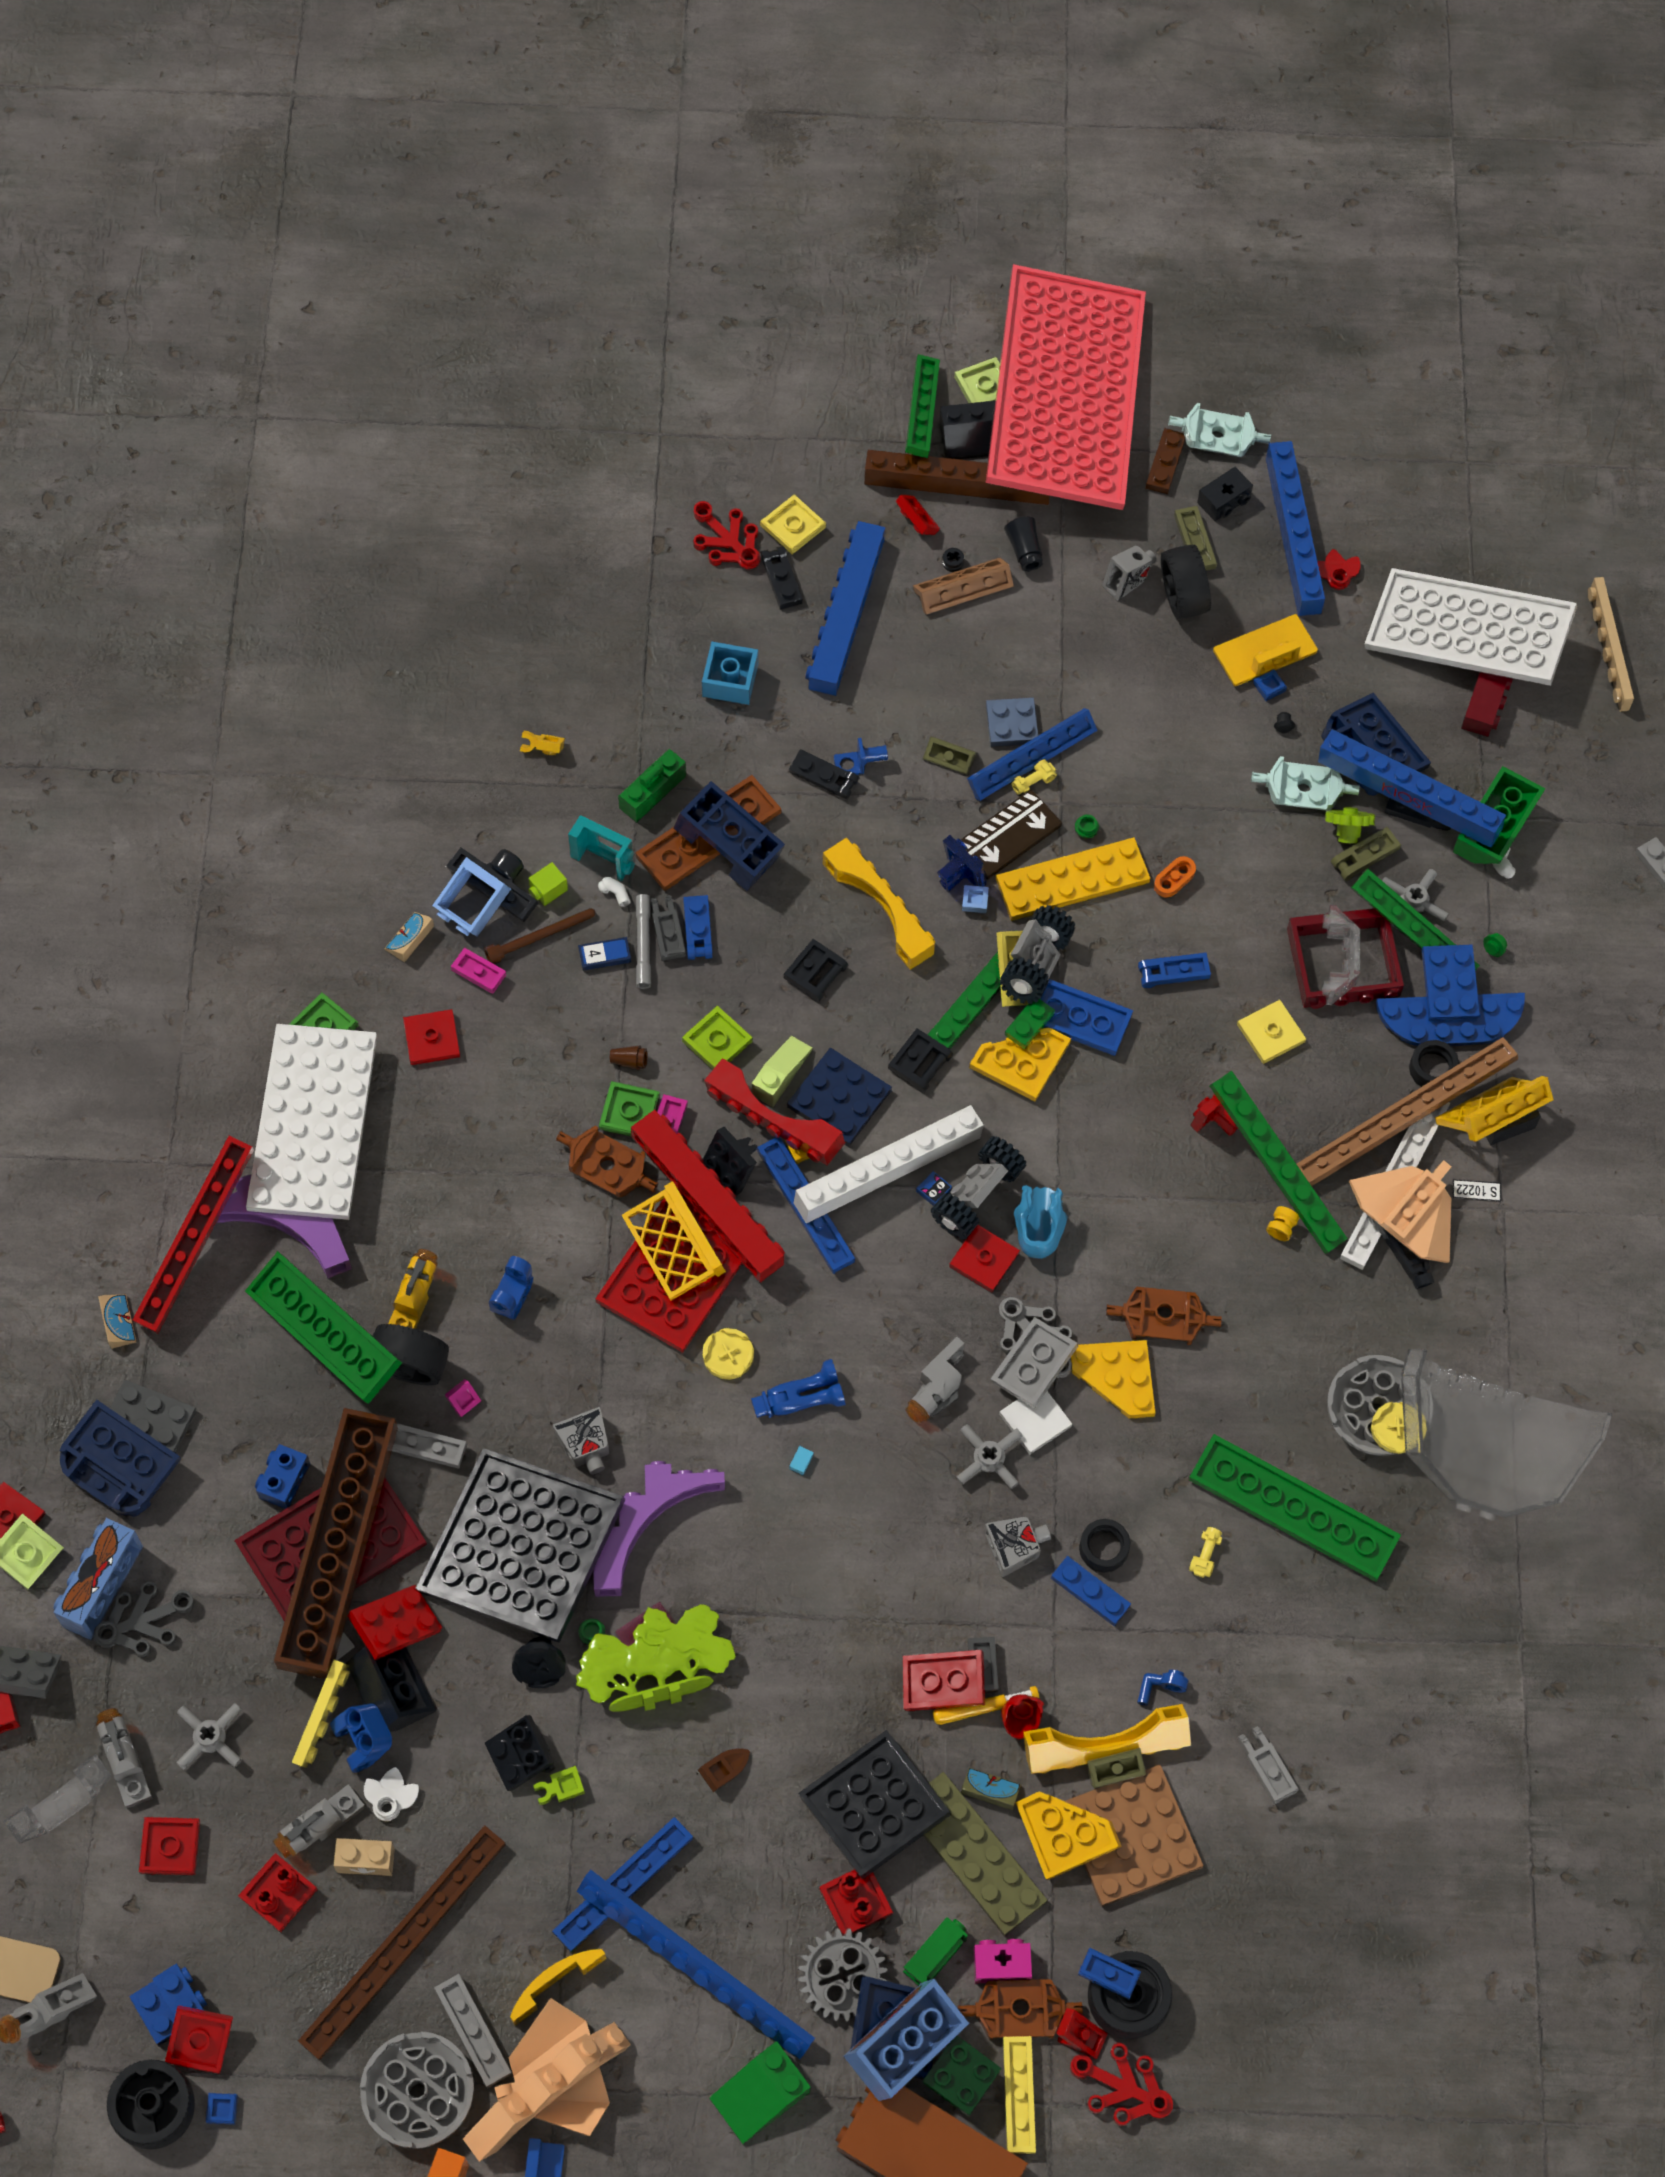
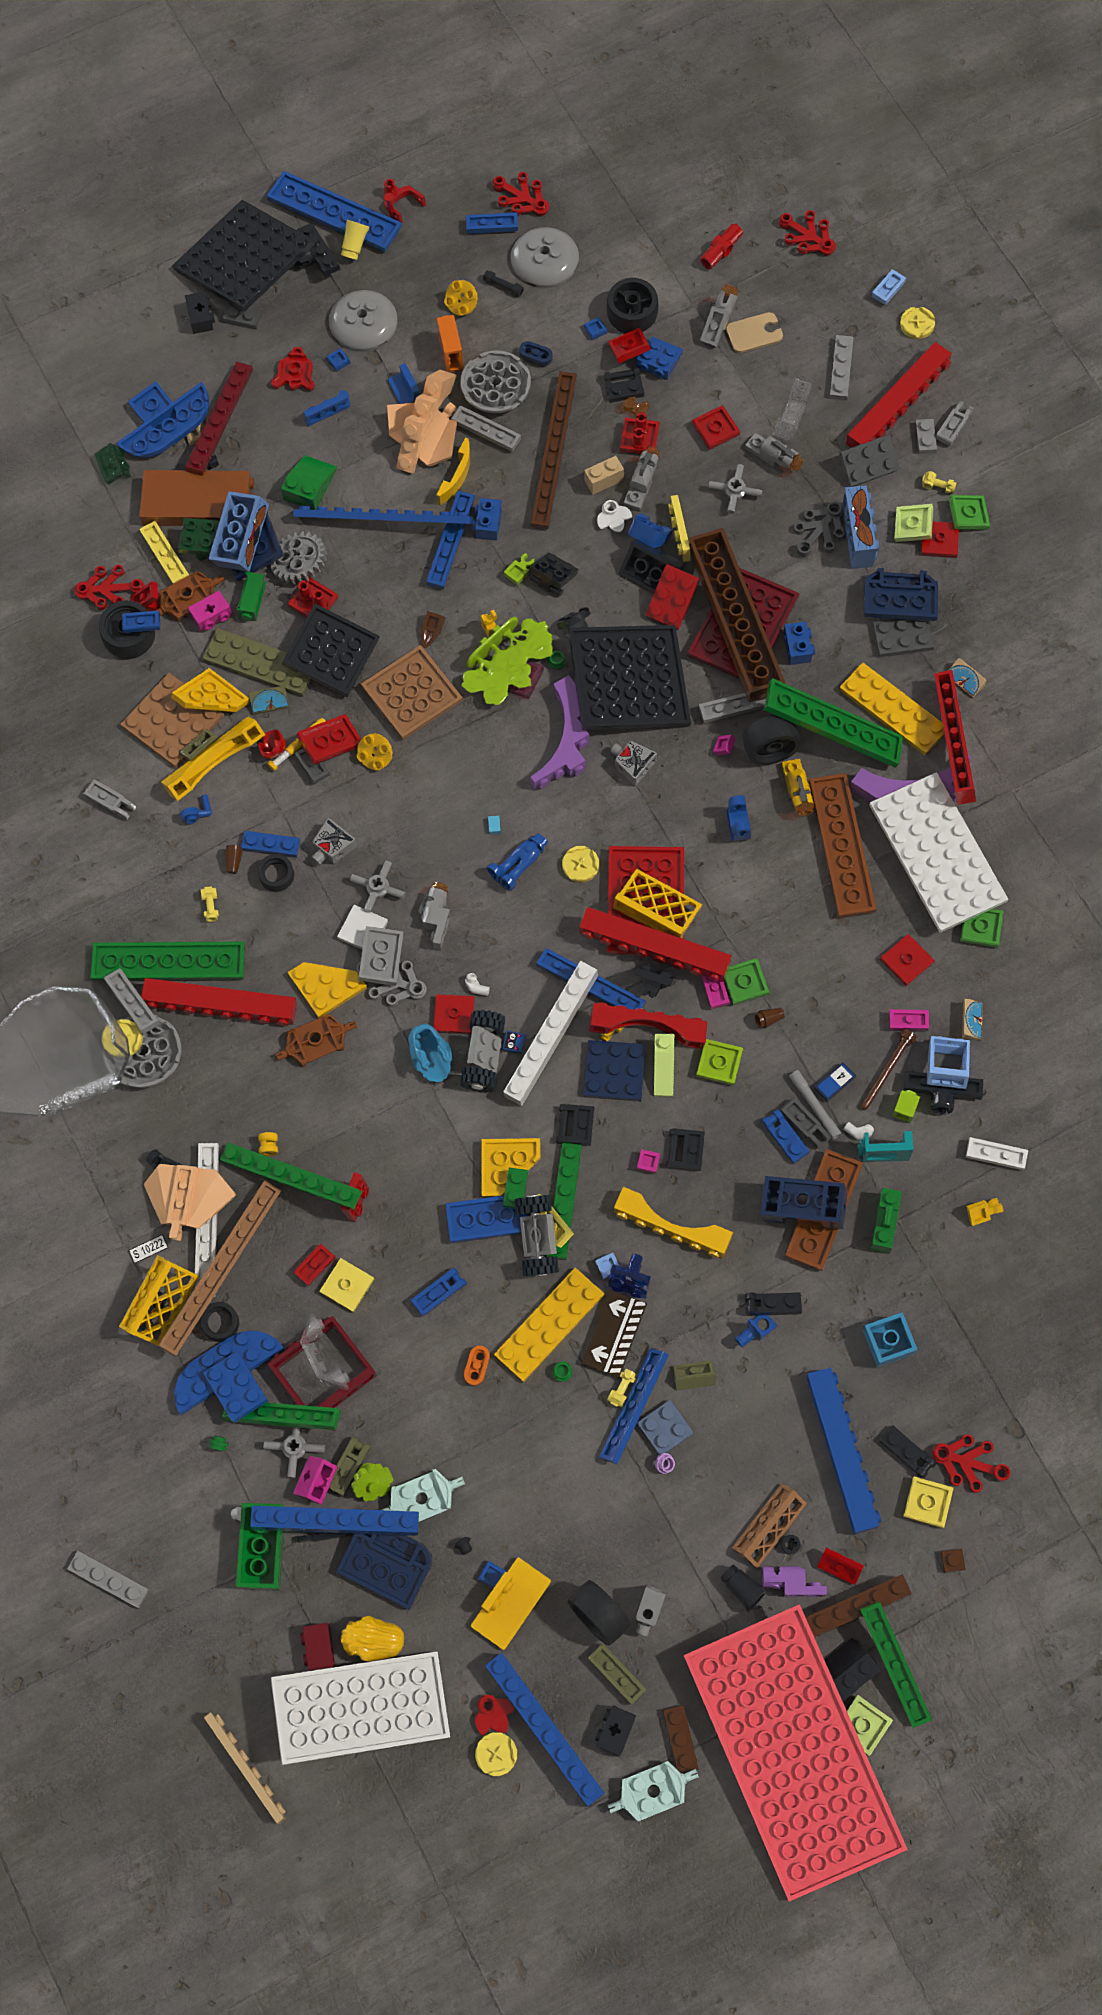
camera: 155 degrees right, 5 degrees up
(229, 1334) = (893, 708): none -> yellow plate
(245, 1982) = (625, 389): none -> black plate
(248, 1936) = (630, 405): none -> clear orange piece
(330, 2114) = (536, 353): none -> dark blue plate
(409, 1202) = (842, 845): none -> dark orange plate
(487, 789) = (996, 1153): none -> white plate
(555, 1884) = (488, 519): none -> blue brick
(593, 1148) = (750, 932): dark orange plate -> none
(648, 1724) = (488, 622): none -> yellow plate
(801, 1692) = (411, 692): none -> medium nougat plate
(804, 468) = (953, 1560): none -> reddish brown plate
(864, 979) = (648, 1161): none -> dark pink plate
(896, 1630) = (366, 749): none -> yellow plate
(942, 1275) = (474, 986): none -> white arm
(974, 524) = (793, 1582): none -> medium lavender plate
(1033, 688) = (667, 1460): none -> lavender plate
(1148, 1595) = (232, 858): none -> reddish brown cone
(1257, 1420) = (219, 1001): none -> red brick
(1297, 1068) = (314, 1264): none -> red plate
(1353, 537) = (496, 1754): none -> light yellow tile
(1366, 1466) = (131, 1001): none -> light grey plate
(1409, 852) = (315, 1479): none -> dark pink brick
(1422, 679) = (372, 1639): none -> yellow hair

